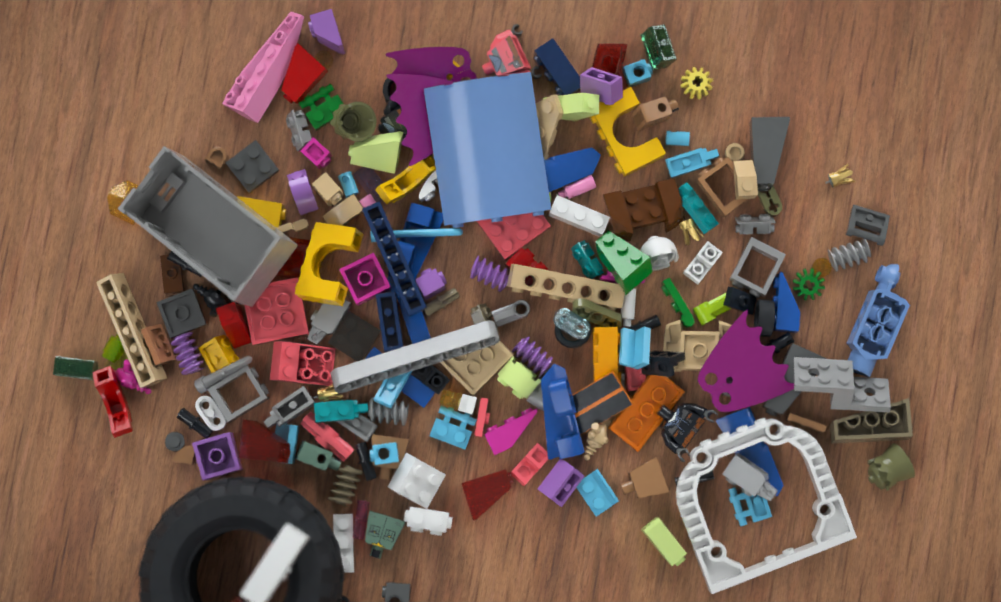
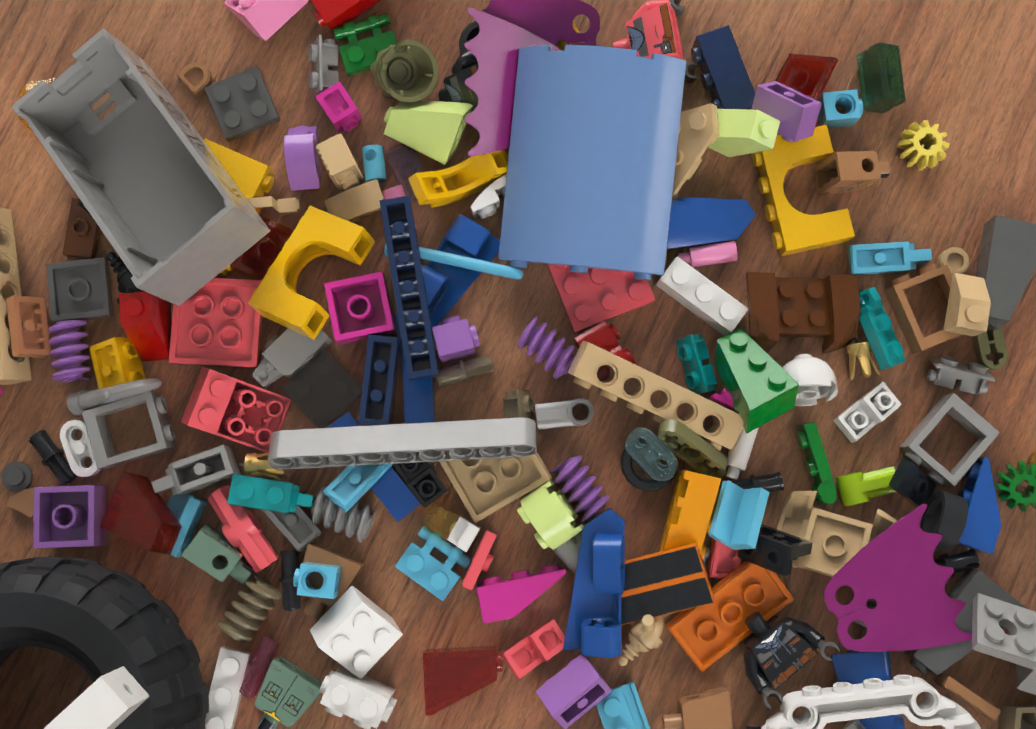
camera: 15 degrees right, 0 degrees up
(677, 138) = (874, 219): medium azure piece -> none

